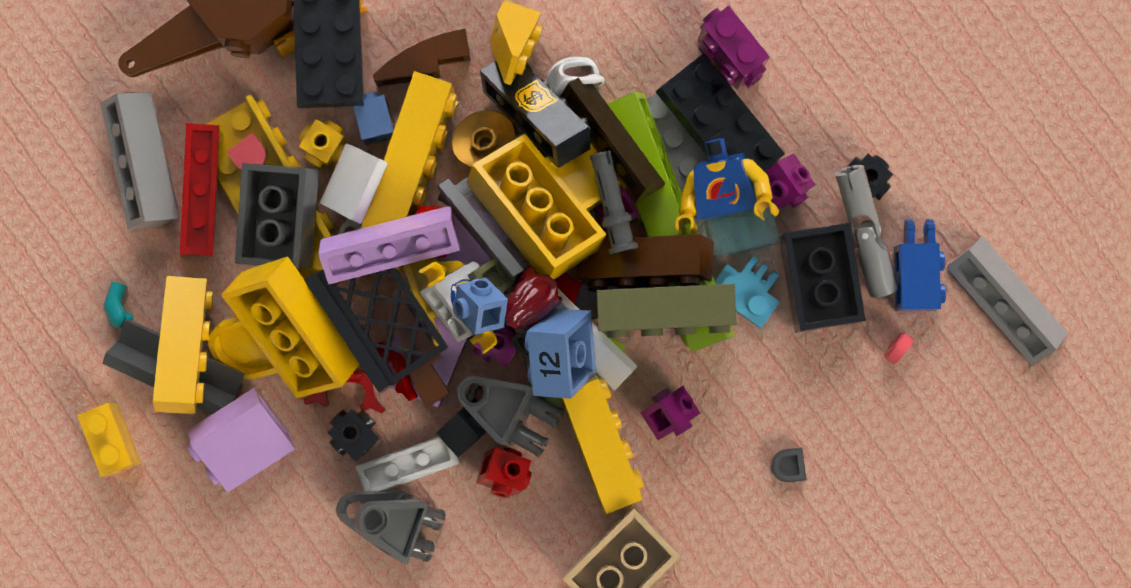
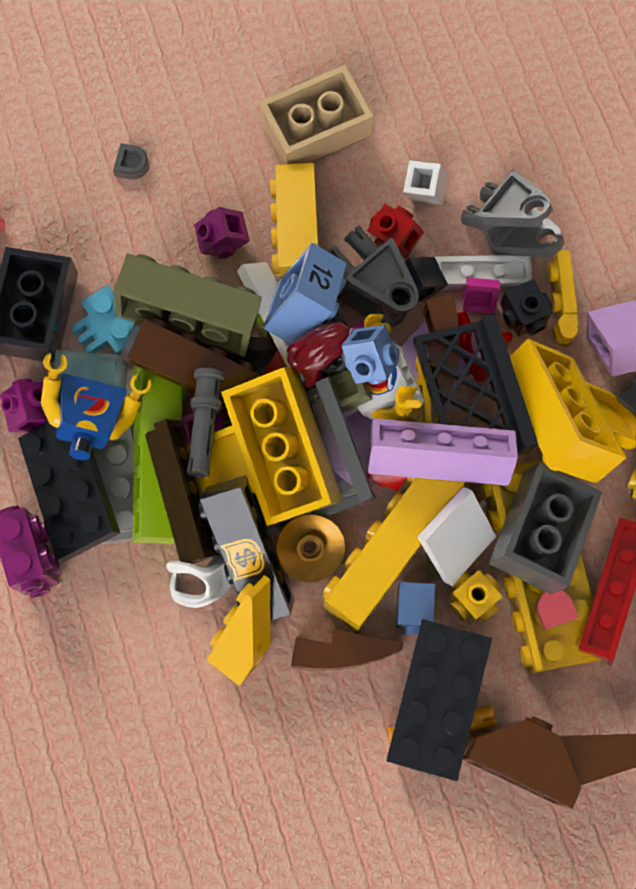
camera: 160 degrees left, 10 degrees down
(321, 459) = (564, 298): none -> yellow hinge
(402, 435) = (480, 295): none -> dark pink plate
(489, 532) = (426, 182): none -> white brick

